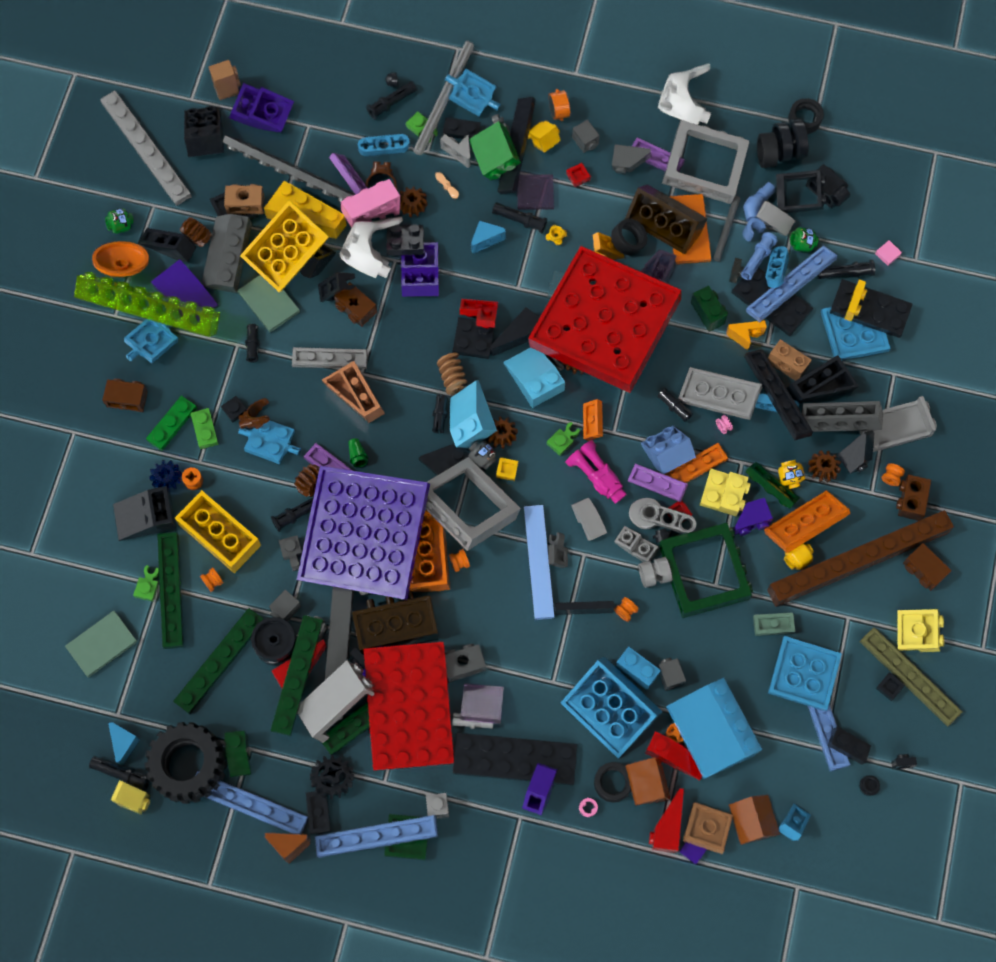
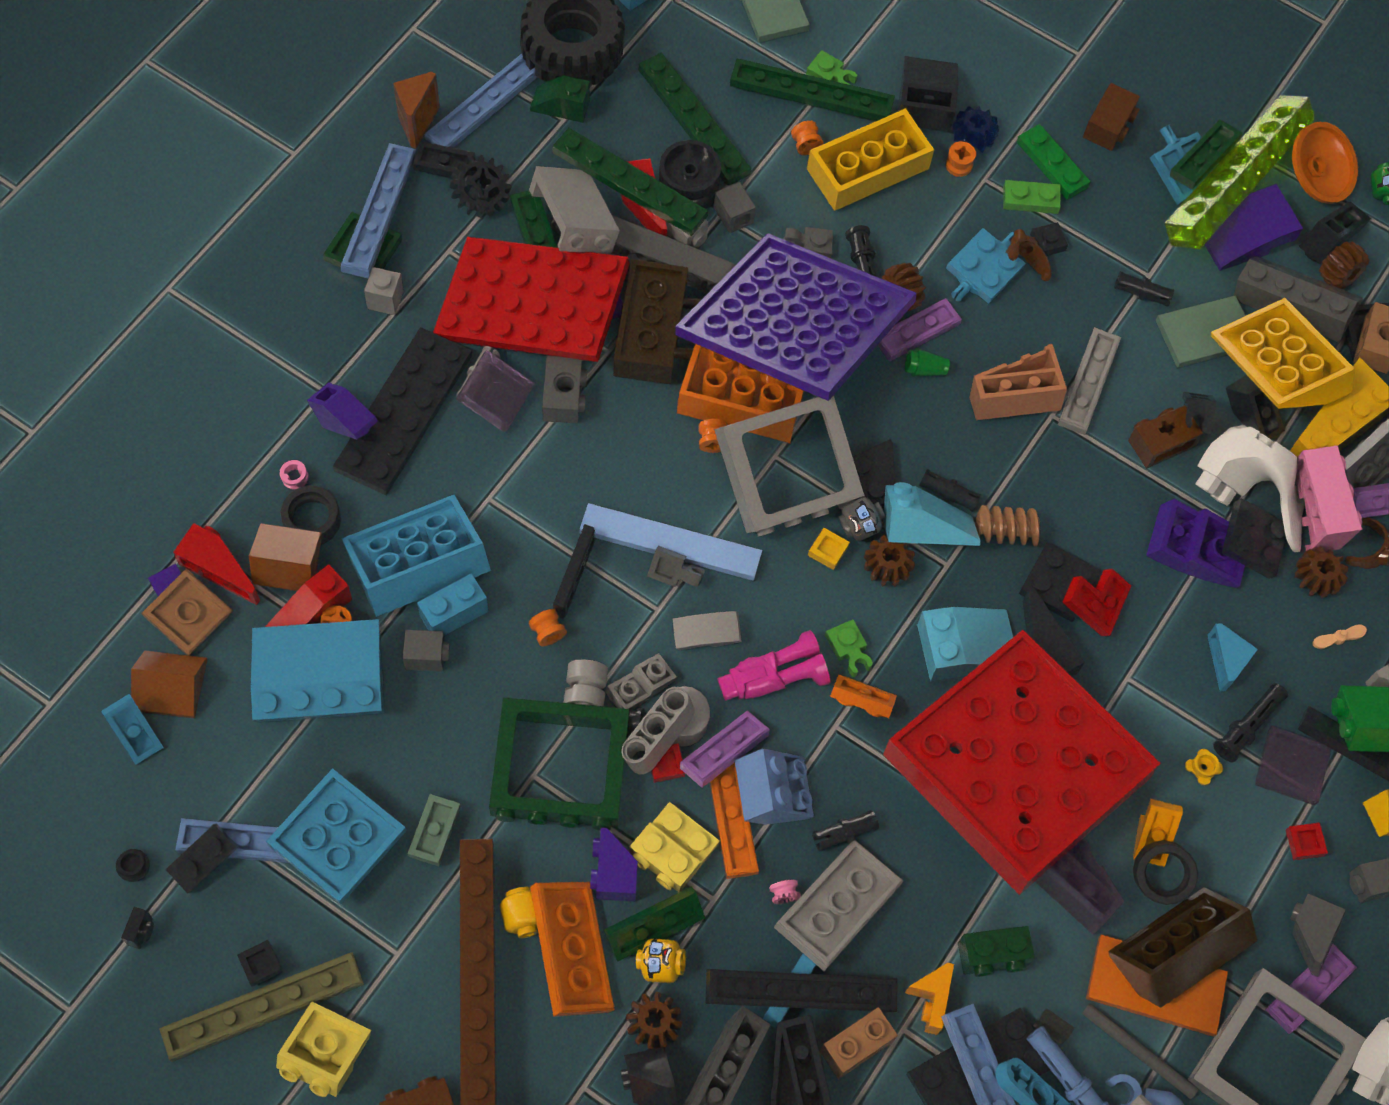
camera: 105 degrees right, 5 degrees down
(143, 326) = (1205, 154): none -> dark green plate

